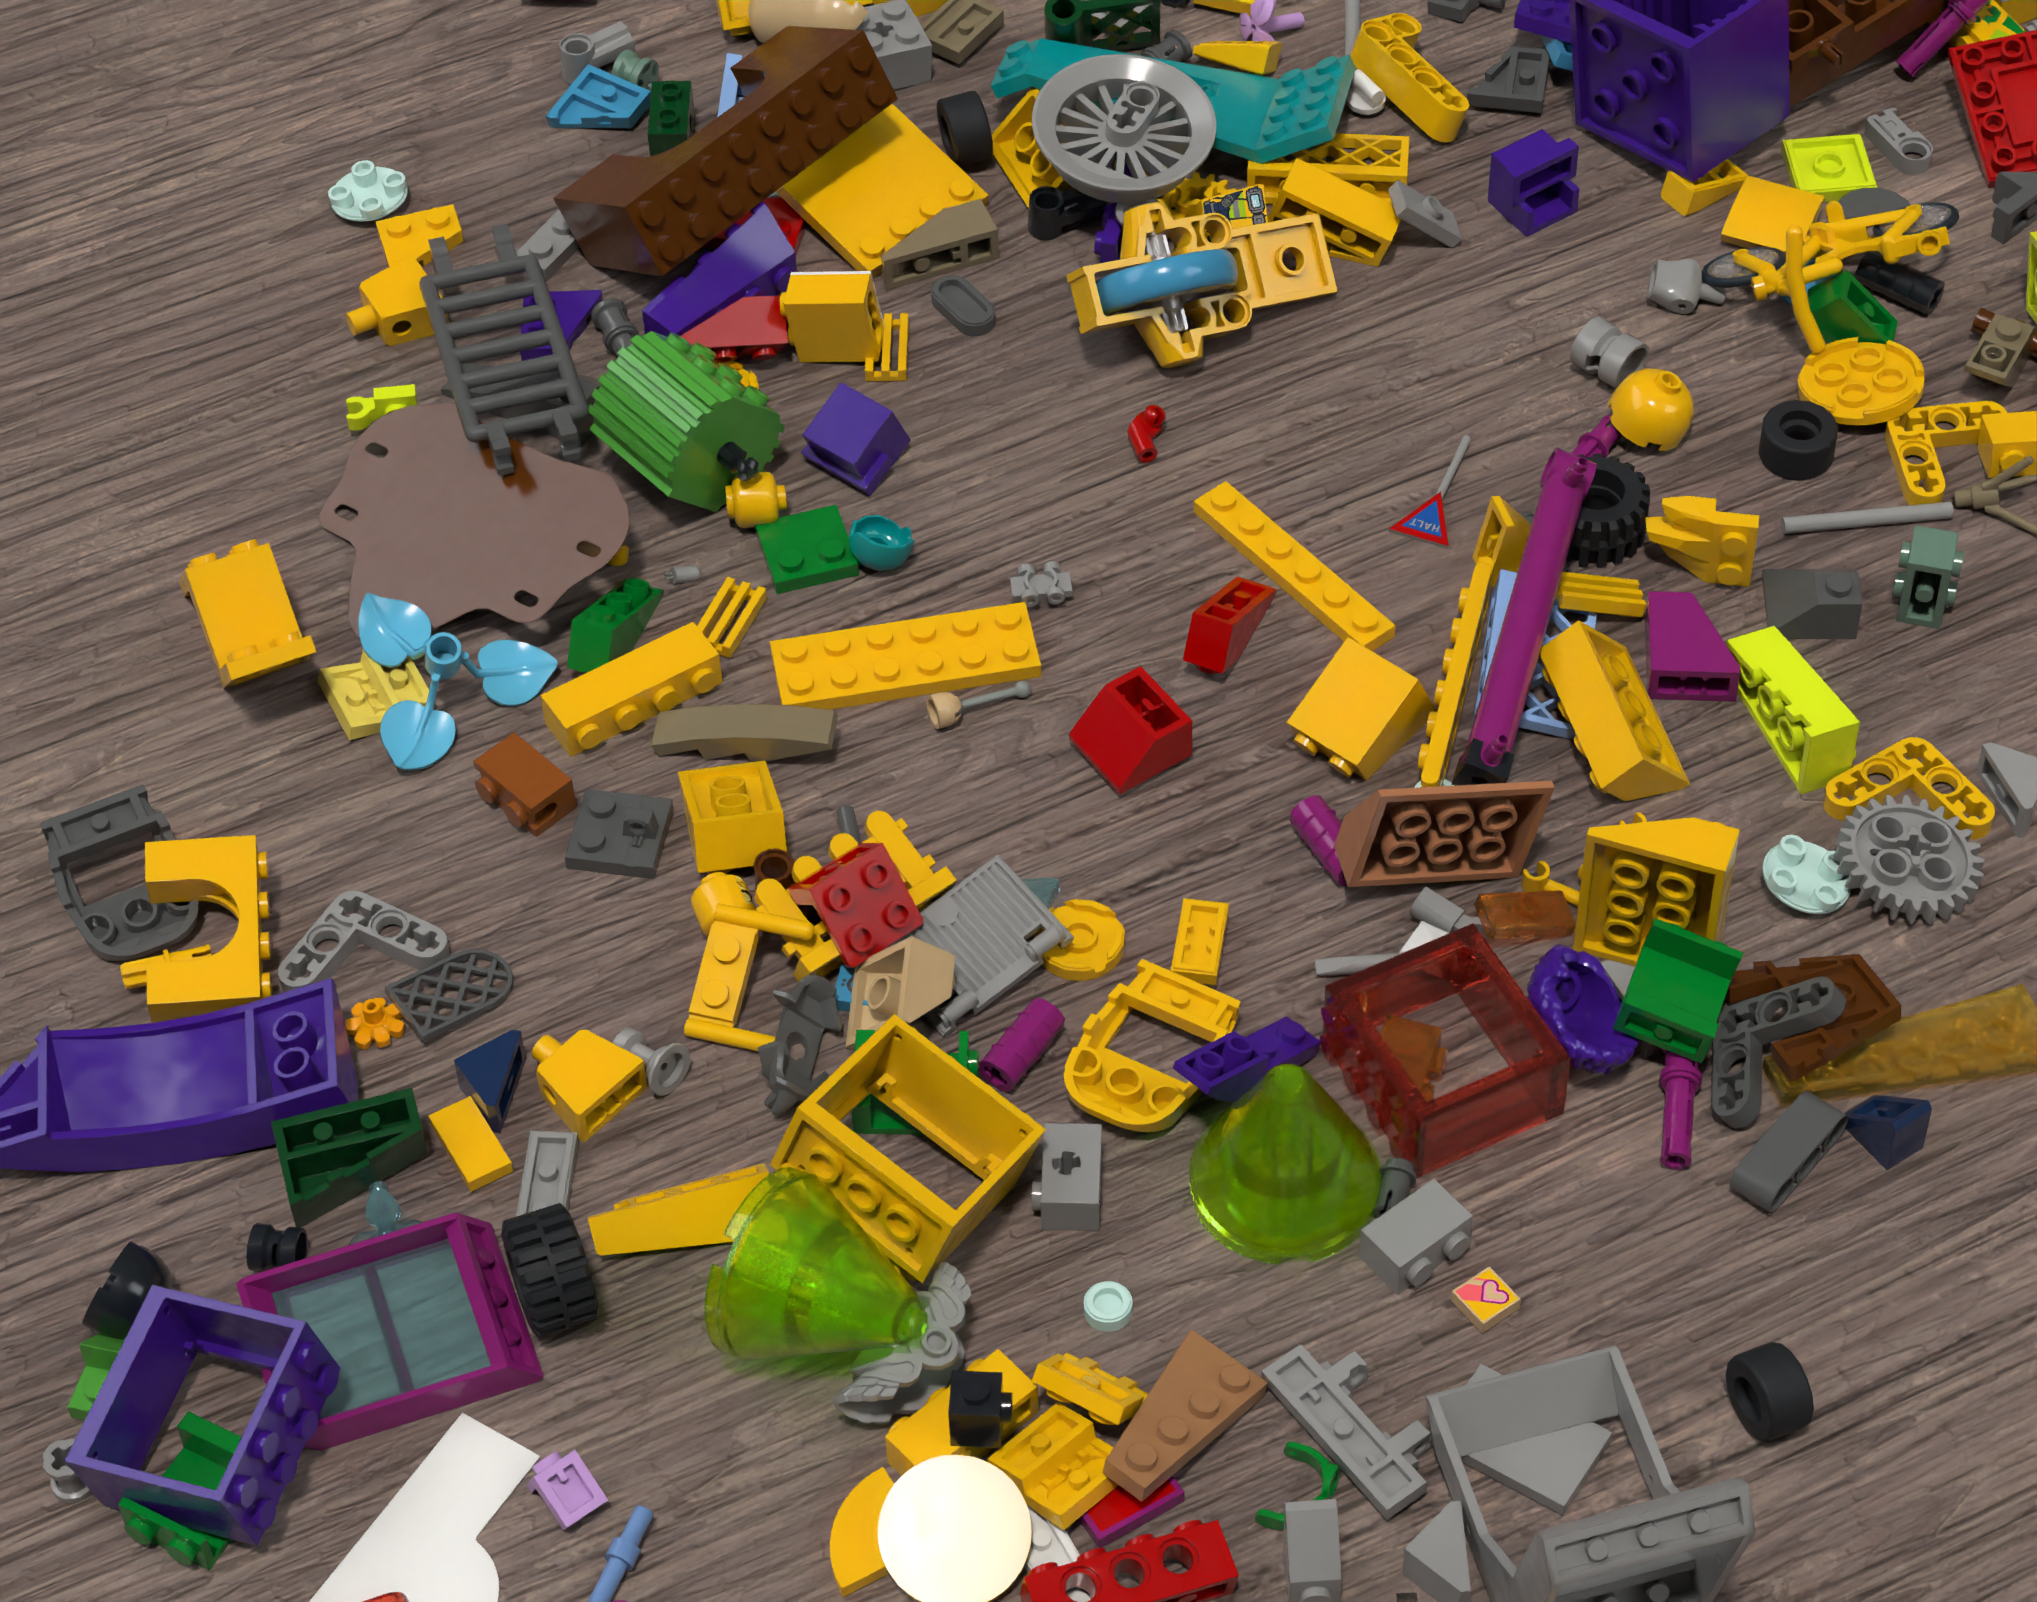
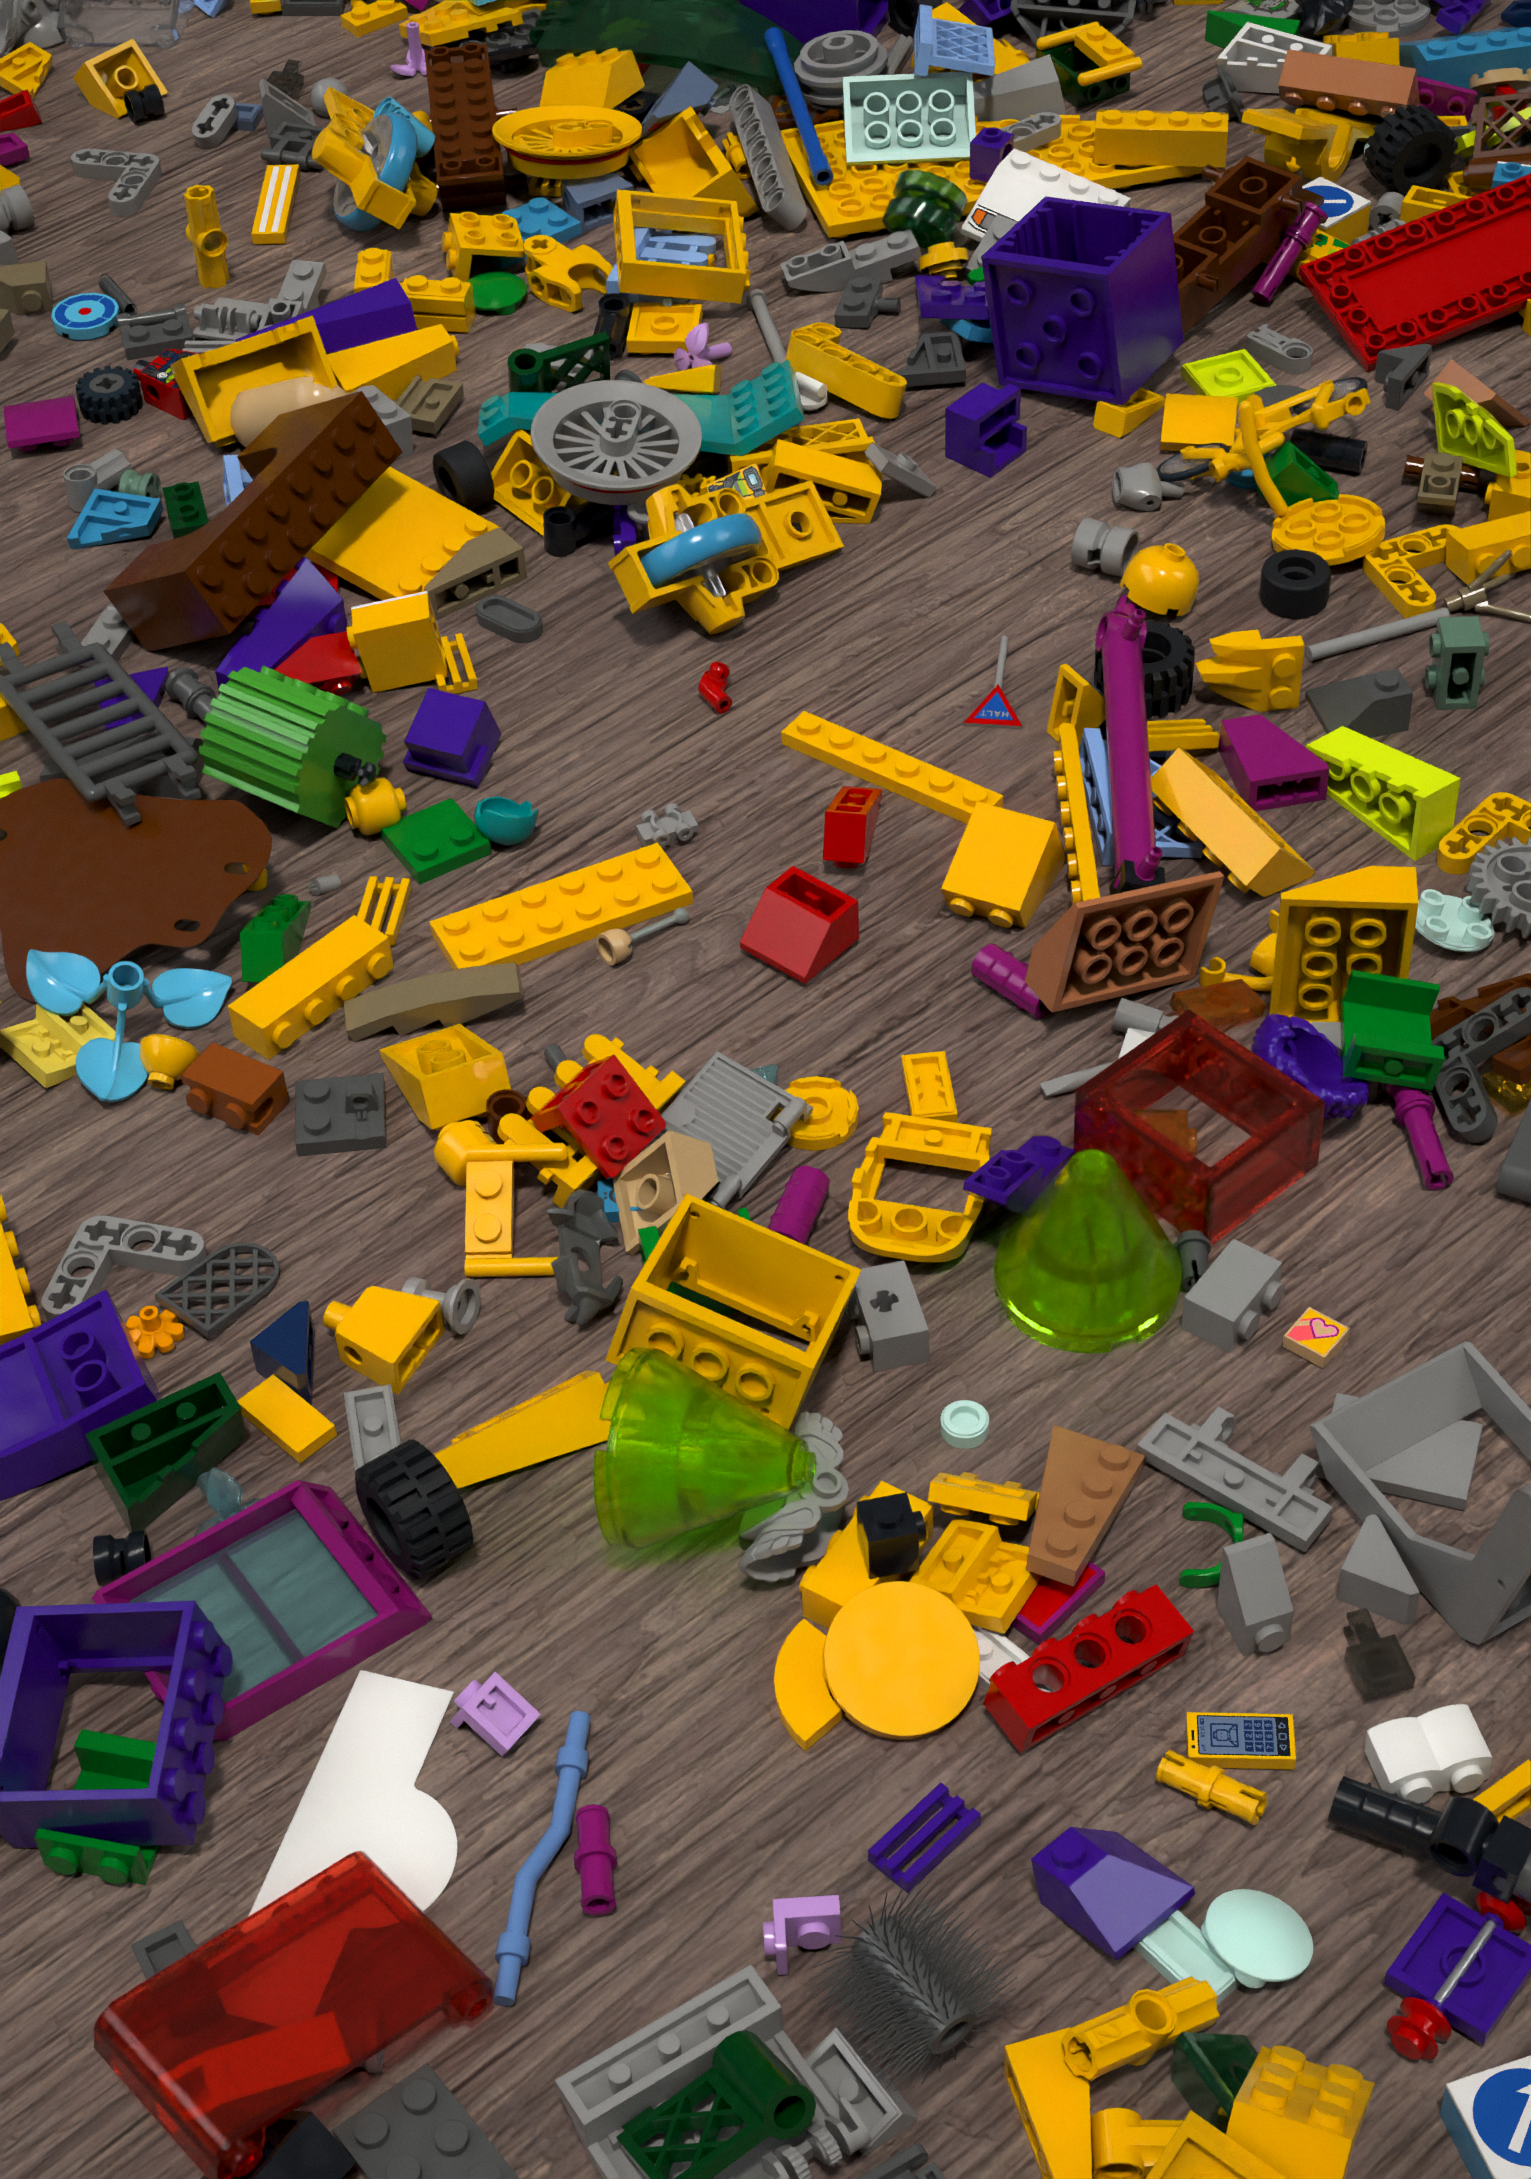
camera: 15 degrees left, 5 degrees down
(467, 737) = (165, 1059): none -> yellow brick

